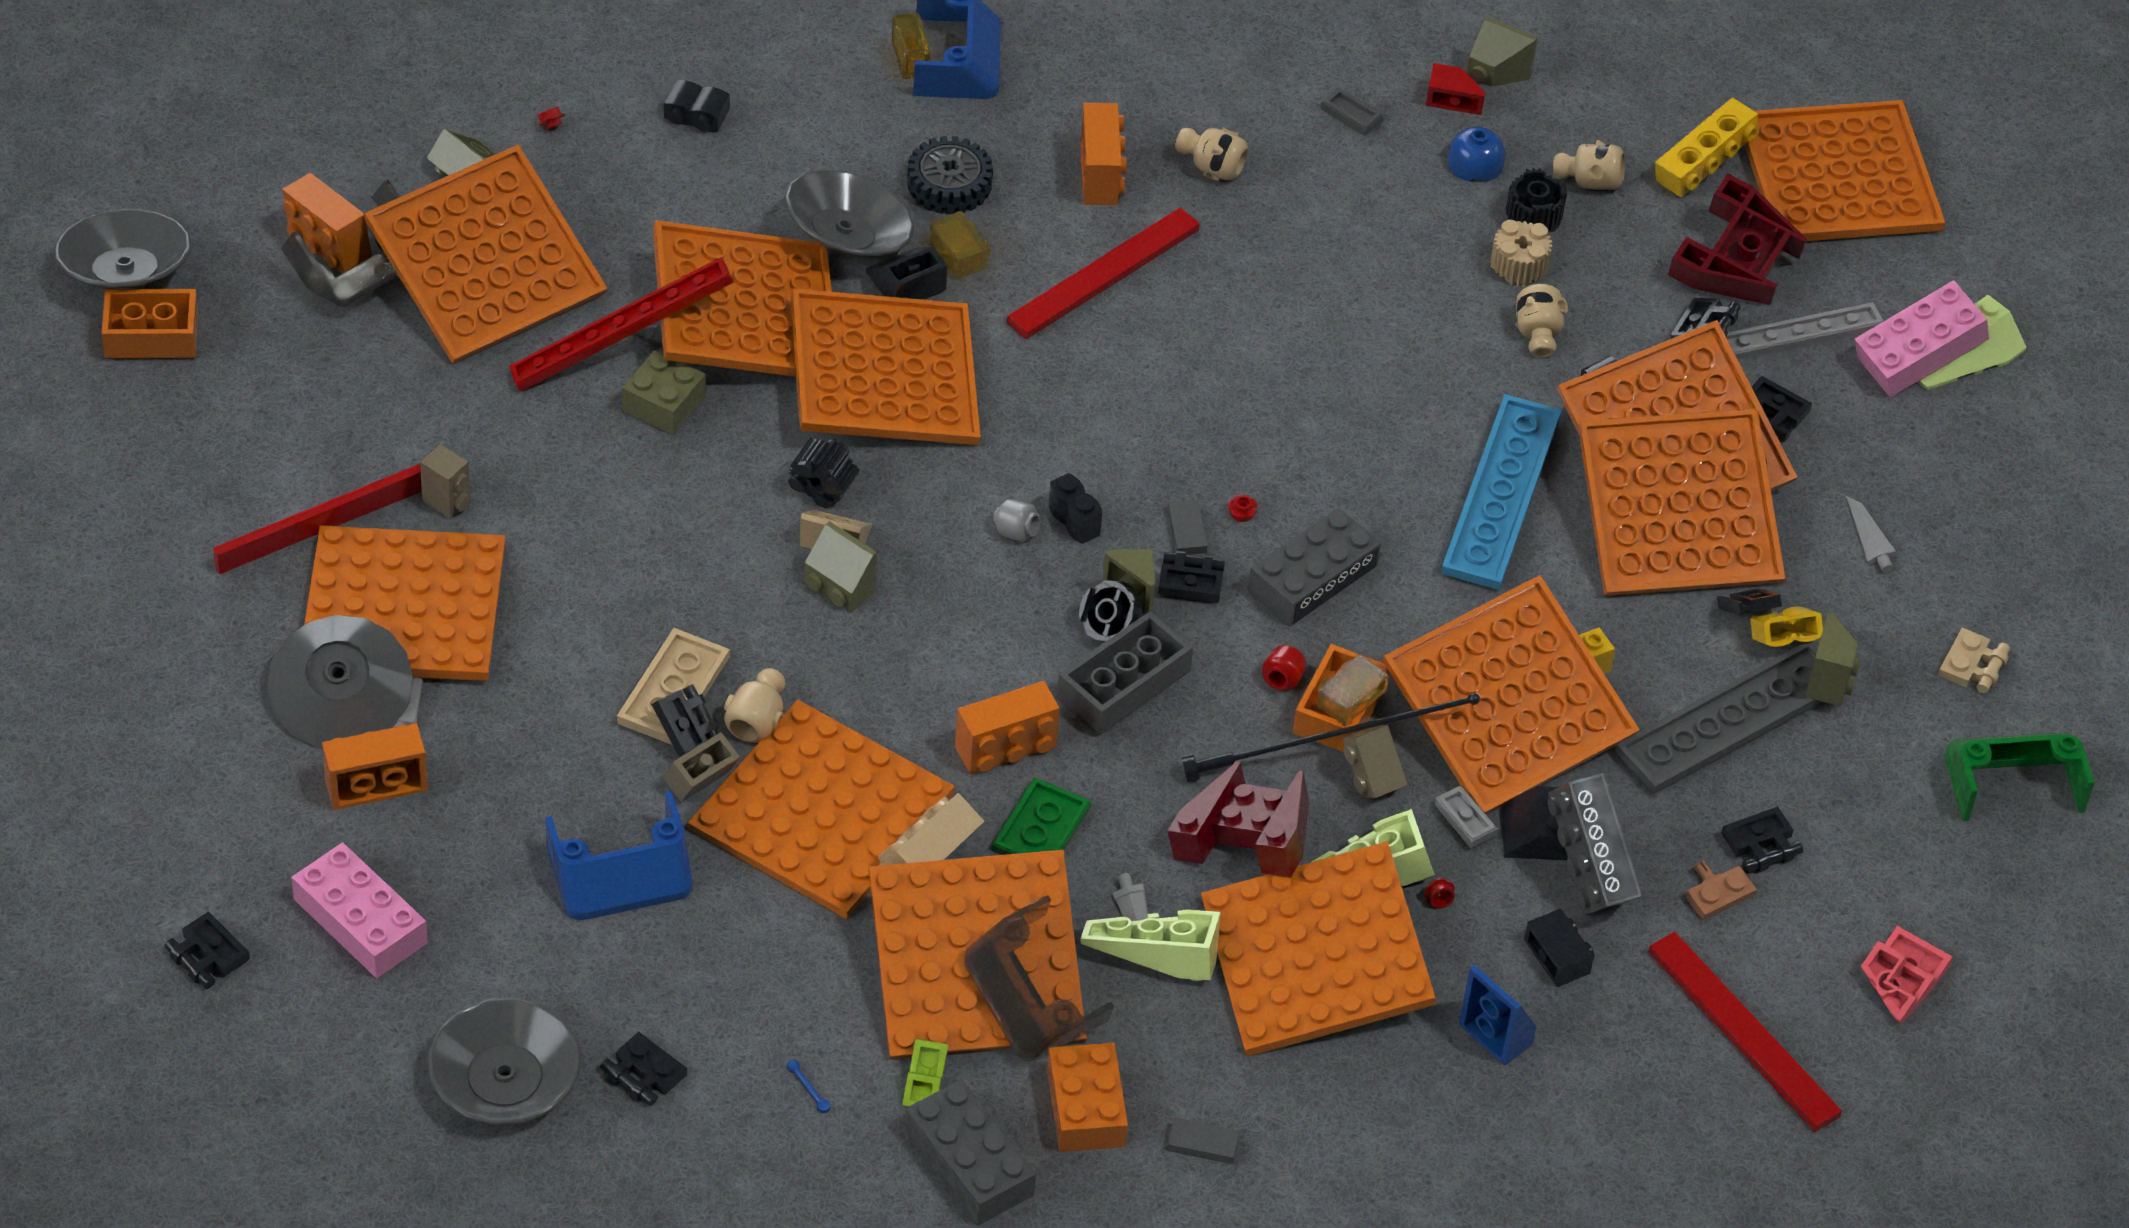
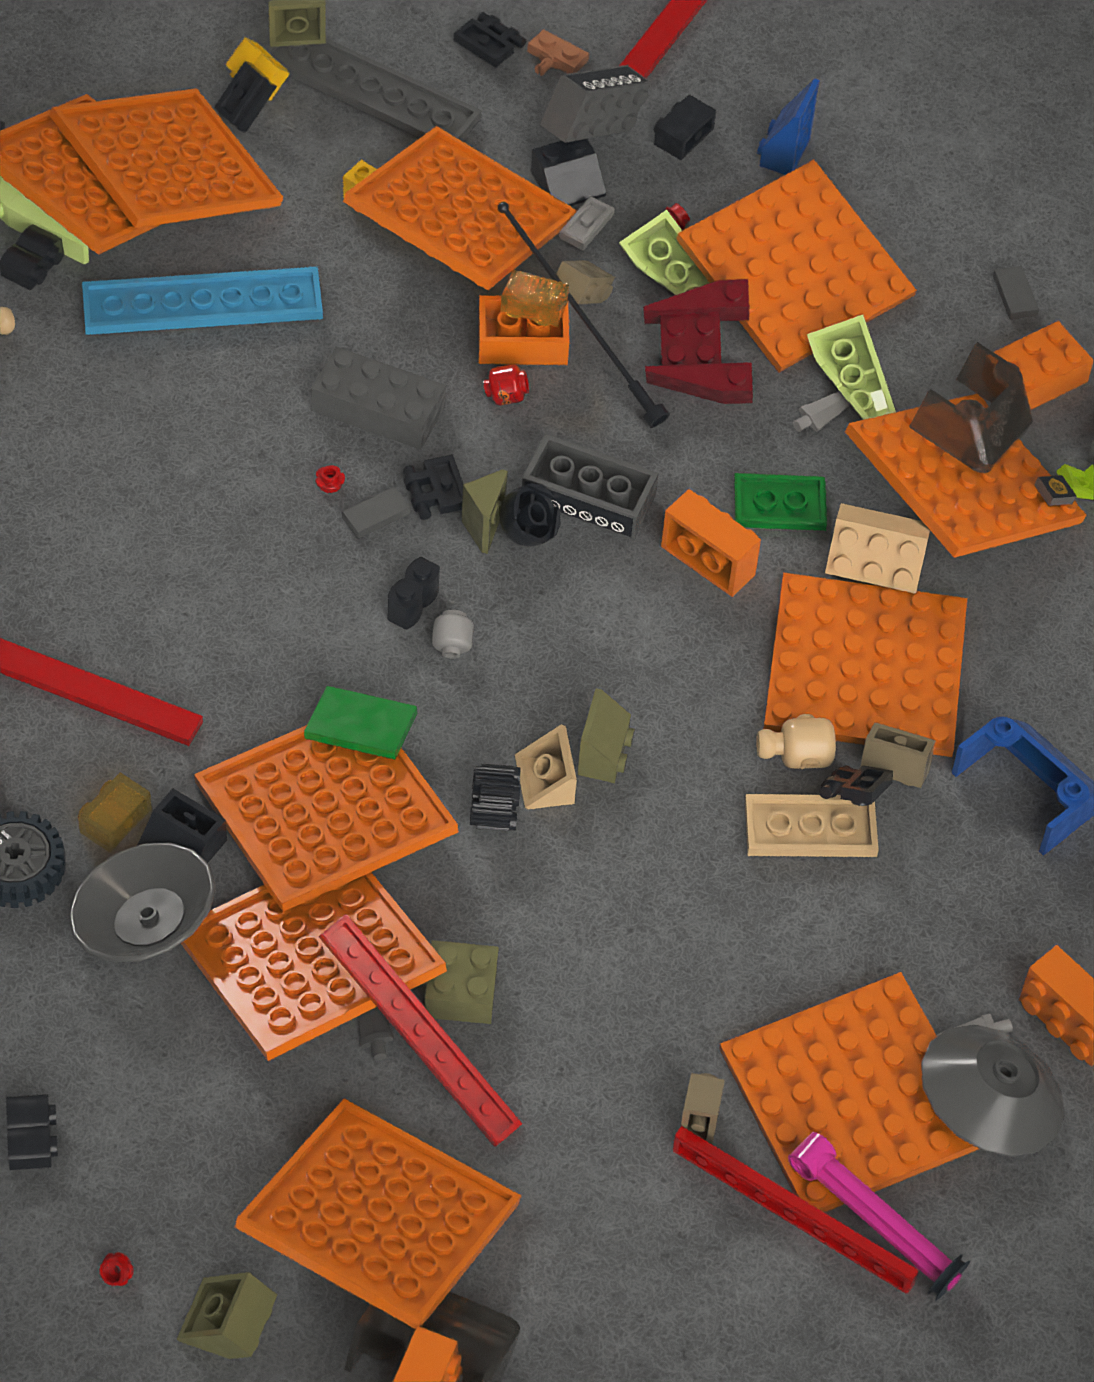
camera: 115 degrees left, 5 degrees up
(351, 529) = (817, 1160): none -> dark pink piece
(919, 1020) = (1055, 490): none -> tile
(951, 415) = (360, 722): none -> green tile
(1874, 543) = (111, 50): light grey bar -> none

